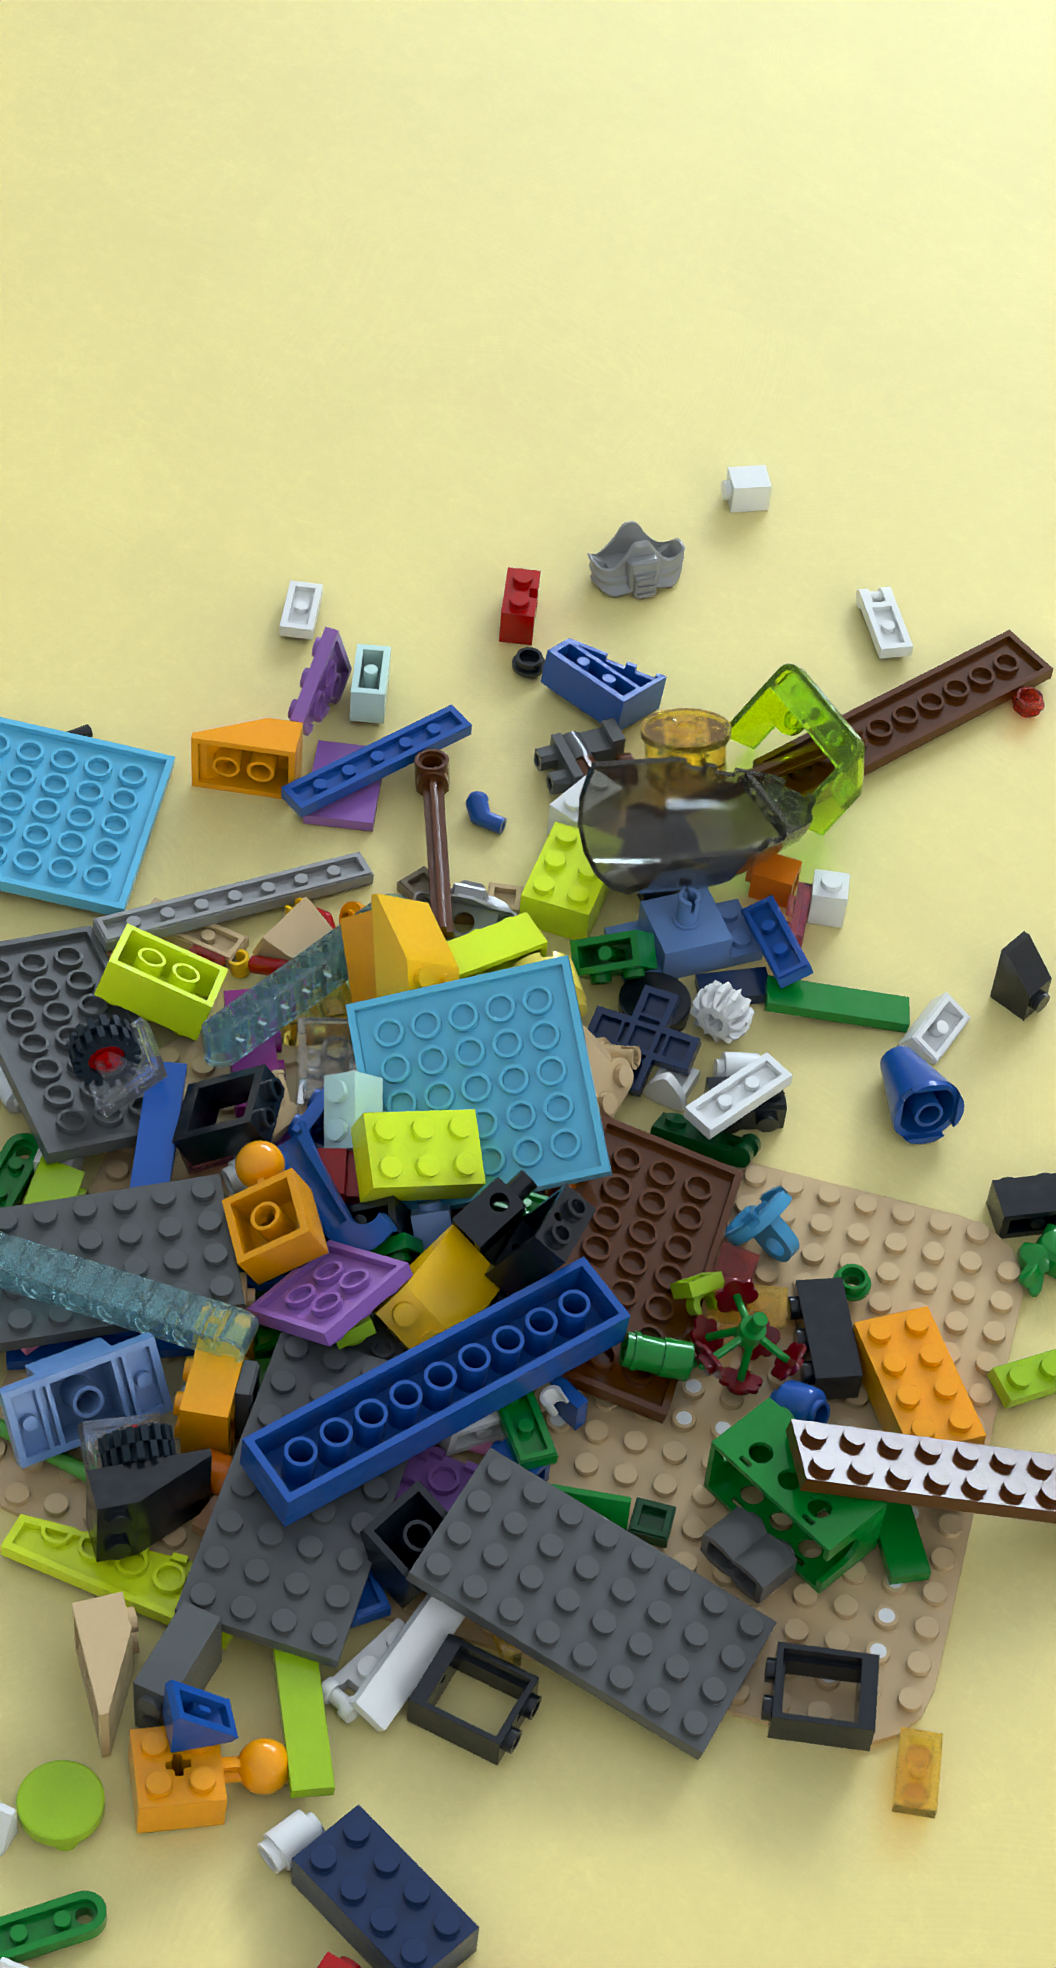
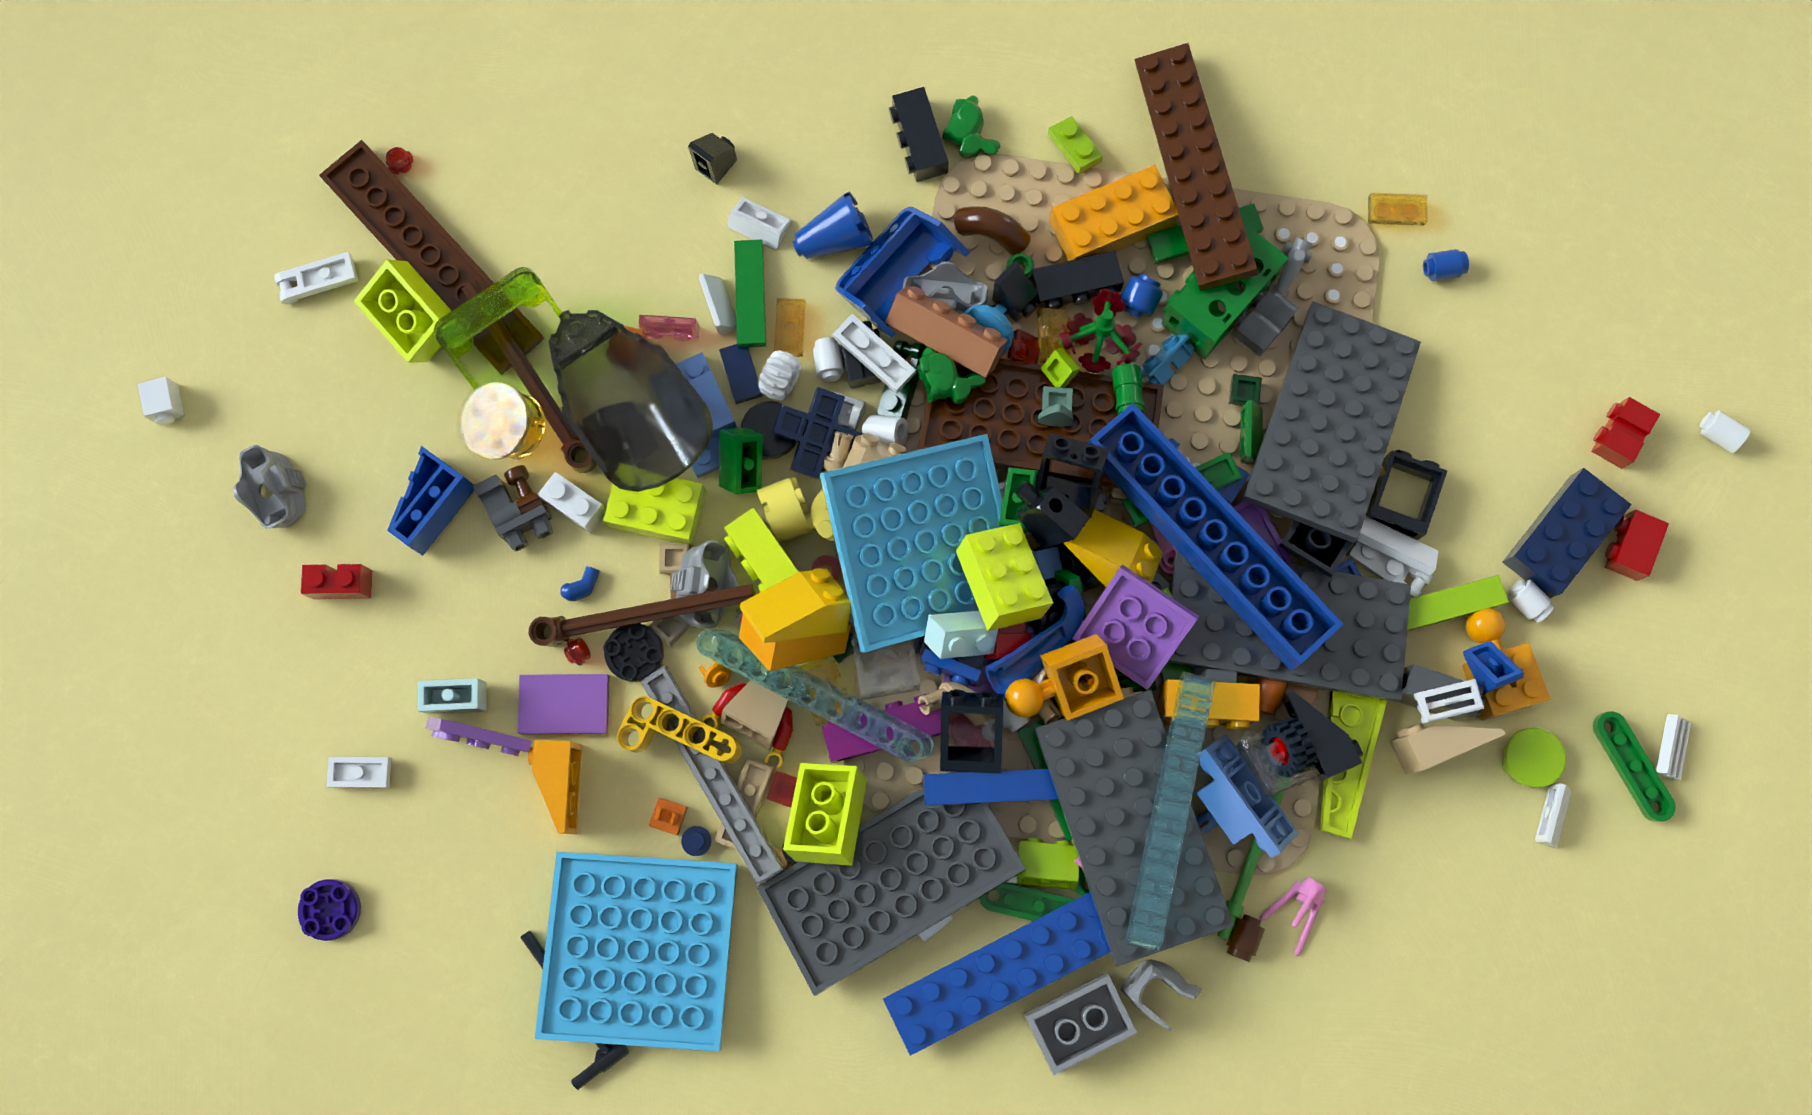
camera: 90 degrees left, 30 degrees up
(115, 1060) = (938, 826): plate -> none
(156, 577) = (328, 909): none -> dark purple tile
(159, 883) = (696, 841): none -> dark blue plate
(162, 1675) = (1424, 707): none -> white tile
(194, 861) = (668, 816): none -> orange tile
(305, 850) = (684, 733): none -> yellow beam
(375, 761) = (544, 678): blue plate -> none
(394, 850) = (633, 652): none -> black tile
(407, 806) = (577, 651): none -> clear red plate
(528, 662) = (401, 568): black plate -> none
(640, 1108) = (887, 428): none -> white brick
(645, 1275) = (1056, 407): none -> sand green tile
(692, 1417) = (1175, 351): none -> dark azure hinge
(694, 1154) = (942, 379): none -> green animal
(758, 1165) = (946, 330): none -> nougat brick
(776, 941) = (706, 337): blue tile -> none
(791, 1042) = (790, 326): none -> clear yellow plate
(812, 1251) = (1015, 292): none -> black slope
(822, 1170) = (950, 285): none -> light grey piece
(823, 1819) = (1446, 265): none -> blue brick
(824, 1664) = (1367, 240): black window -> none
(828, 898) = (643, 301): white brick -> none
(836, 1594) = (1298, 254): none -> light grey piece
(837, 967) = (718, 303): none -> white slope
(848, 1138) = (898, 252): none -> blue windscreen
(849, 672) = (403, 309): none -> neon yellow brick
(905, 1251) = (992, 224): none -> reddish brown cylinder

